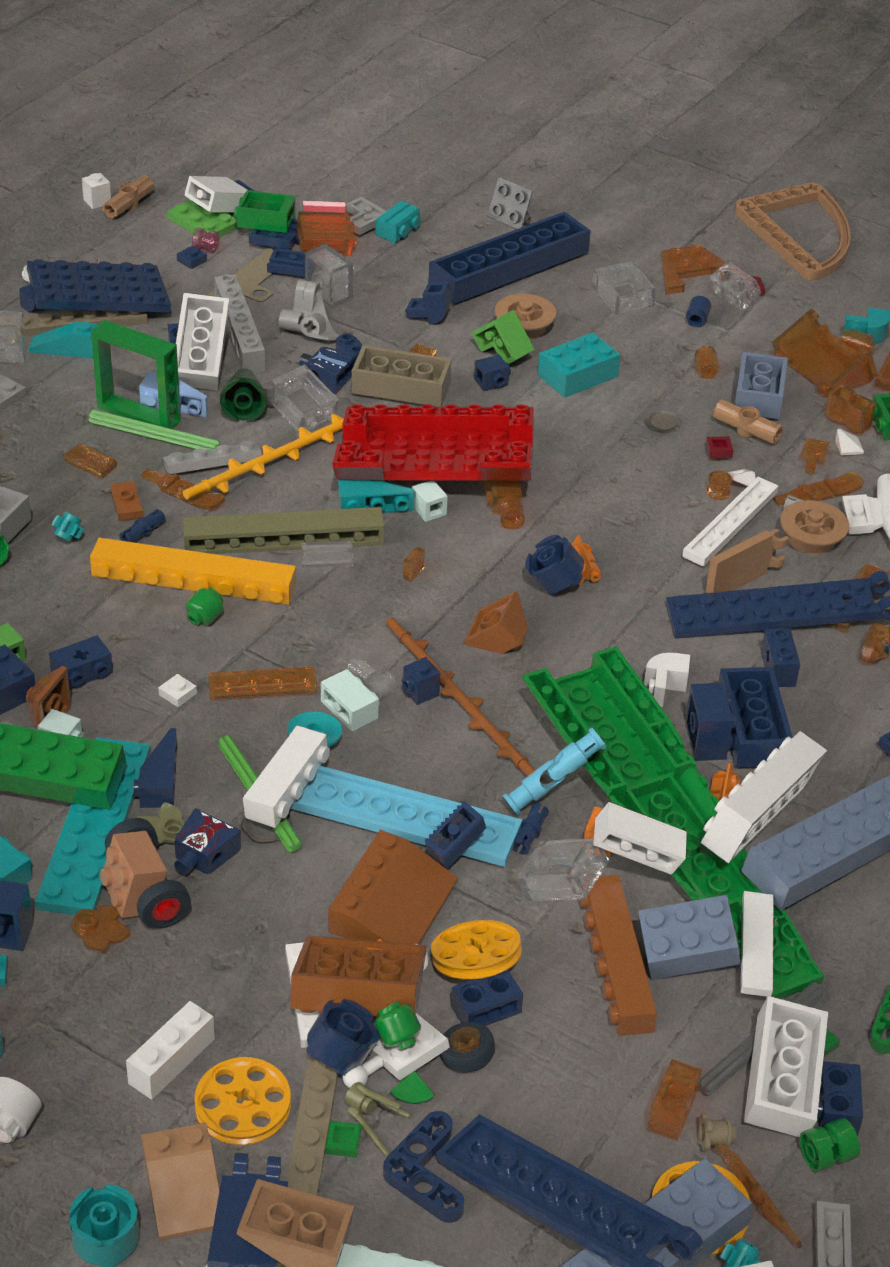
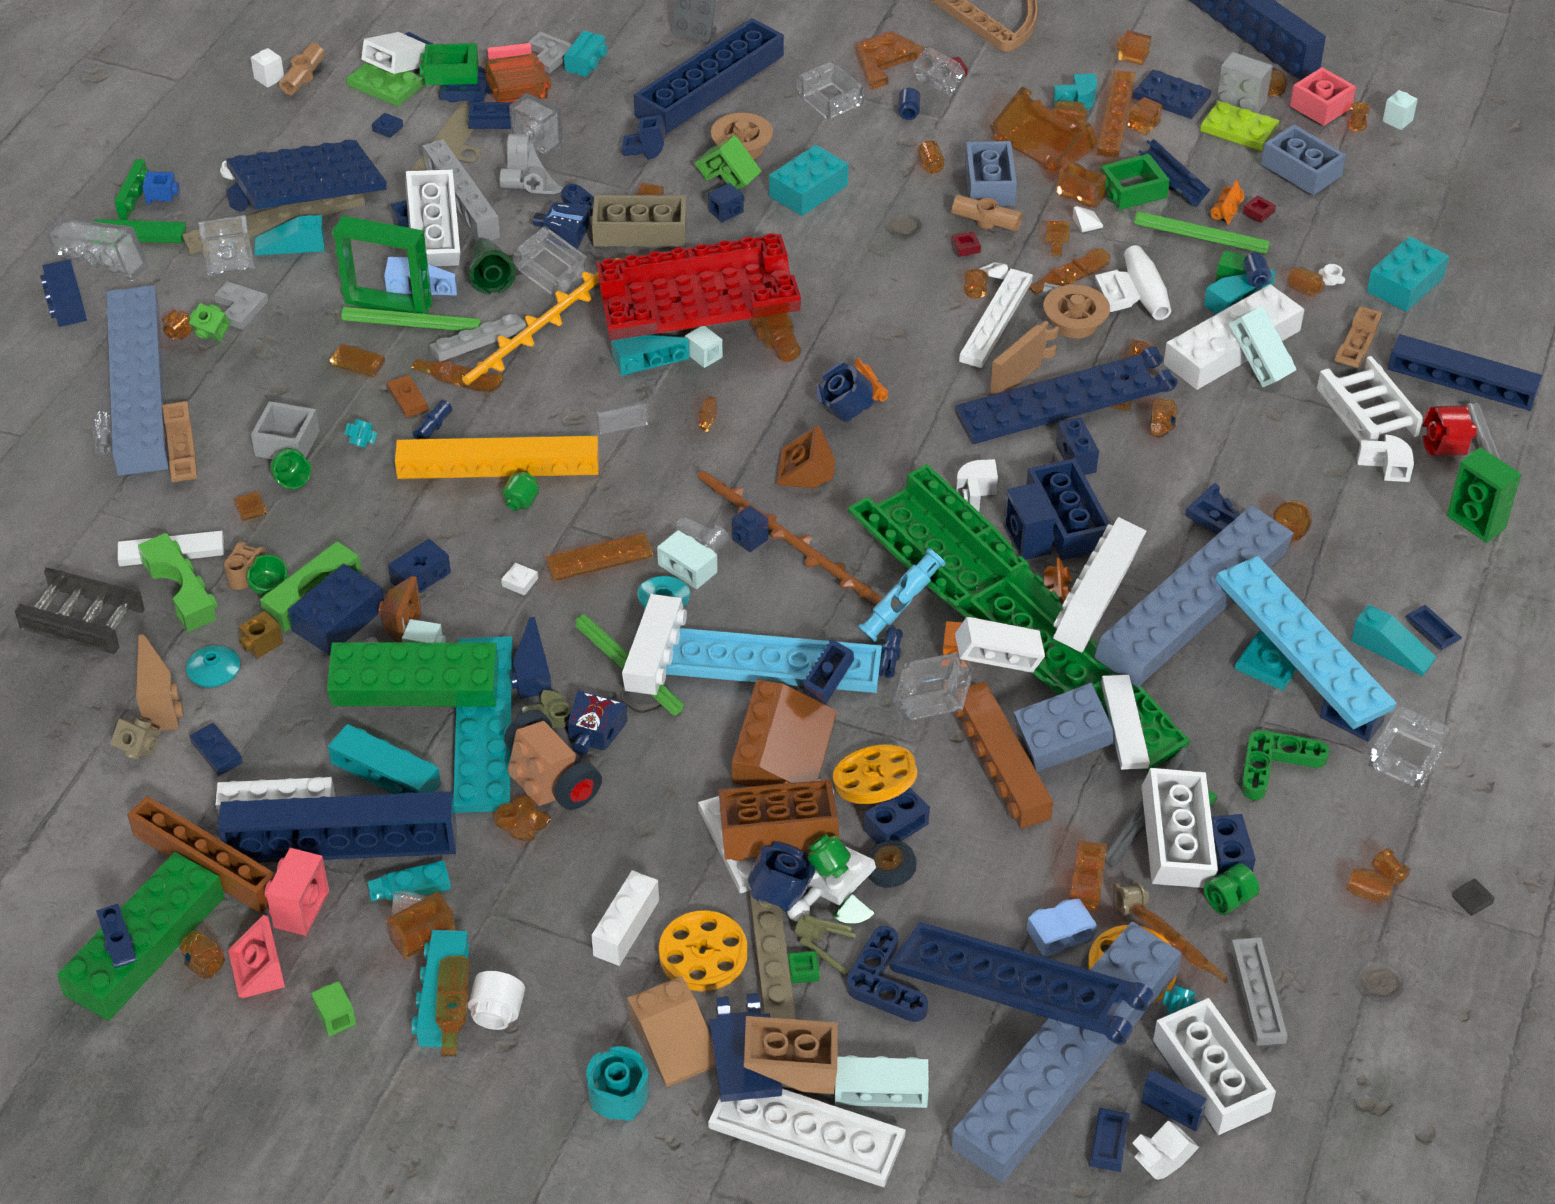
camera: 10 degrees left, 5 degrees up
(205, 240) = (397, 104): clear pink wheel -> none
(282, 530) = (571, 401): olive brick -> none
(632, 1150) = (1061, 927): none -> light blue brick

